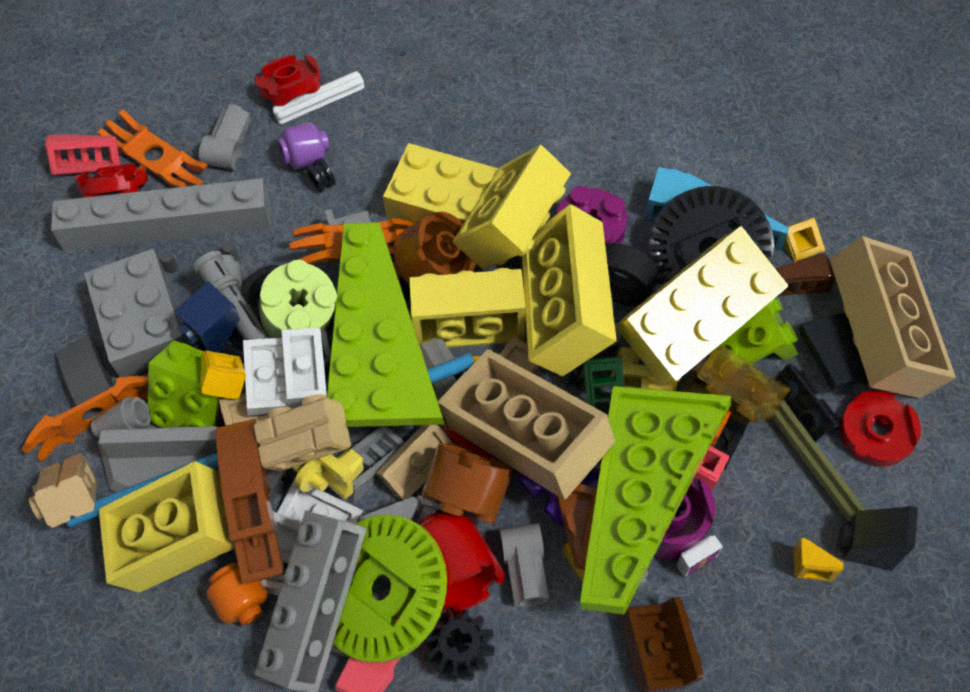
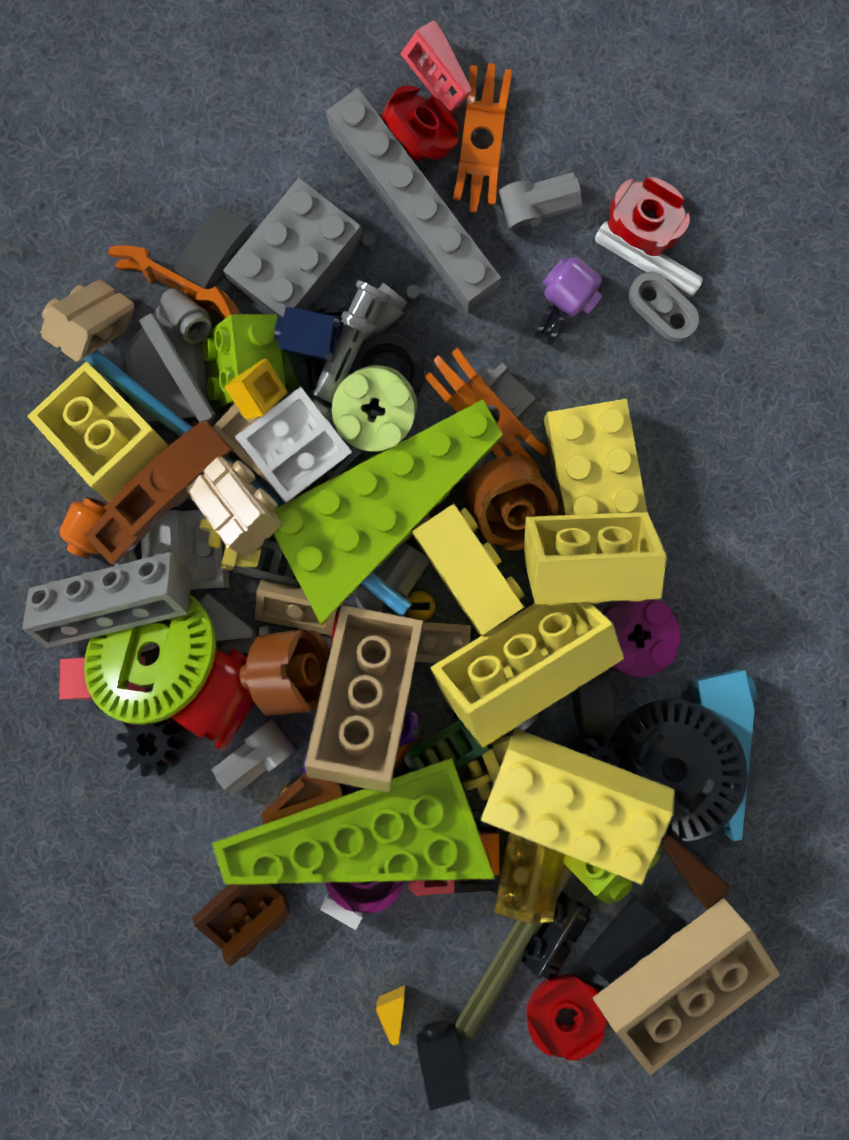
camera: 65 degrees right, 25 degrees up
(358, 102) = (667, 303): none -> light grey plate
(803, 240) = (751, 852): yellow slope -> none

